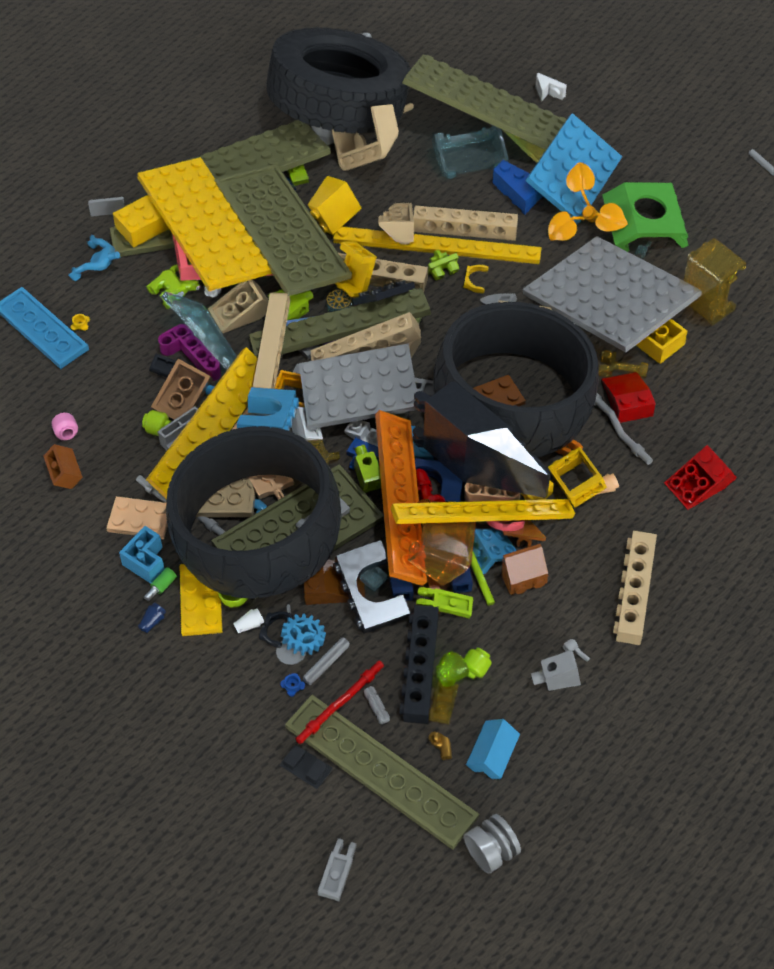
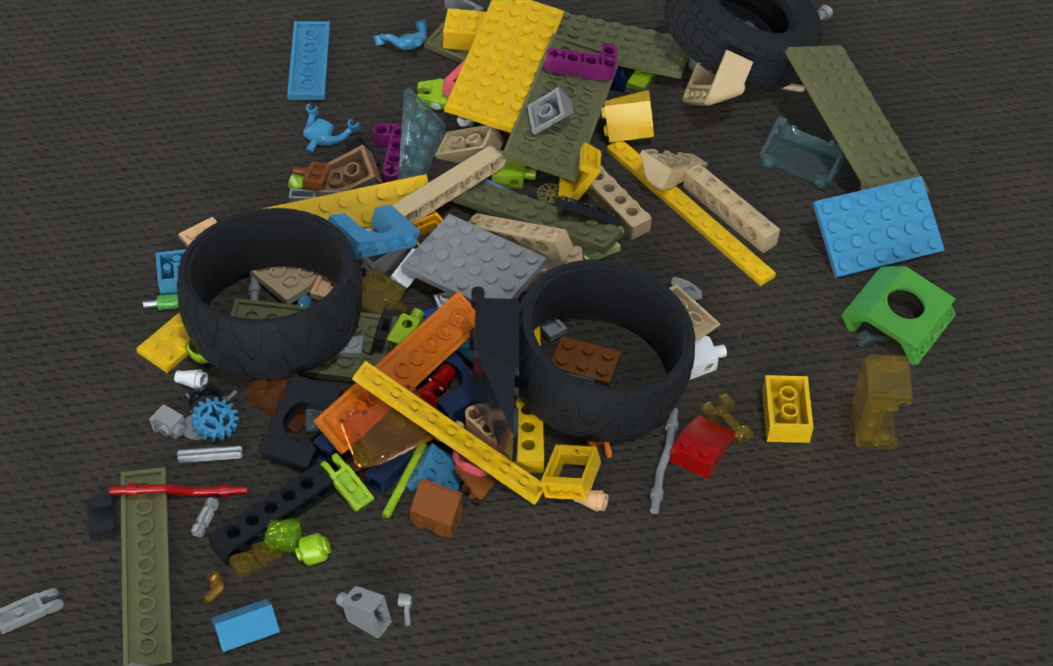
camera: 40 degrees right, 5 degrees down
(62, 466) = (199, 167): dark orange brick -> none
(64, 426) = (237, 140): bright pink head -> none
(80, 322) = (340, 75): yellow plate -> none
(119, 373) = (321, 131): none -> dark azure piece
(152, 617) = (130, 320): dark blue cone -> none
(165, 407) = (314, 175): none -> dark orange plate
(274, 182) = (583, 64): none -> magenta beam
(274, 663) = (168, 422): none -> light grey brick
(286, 238) = (549, 110): none -> light grey slope
(292, 678) = (165, 444): blue plate -> none
(350, 487) = (381, 336): none -> black piece
(442, 261) = (672, 224): lime hips -> none
(467, 284) = (689, 248): yellow cap -> none
(512, 182) = (811, 191): blue wedge -> none
(549, 86) = (944, 149): white slope -> none
(610, 216) = (857, 283): light orange plant -> none
(612, 293) = (786, 350): light grey plate -> none
(632, 631) = (471, 633): tan brick -> none
(700, 478) = (684, 559): red slope -> none

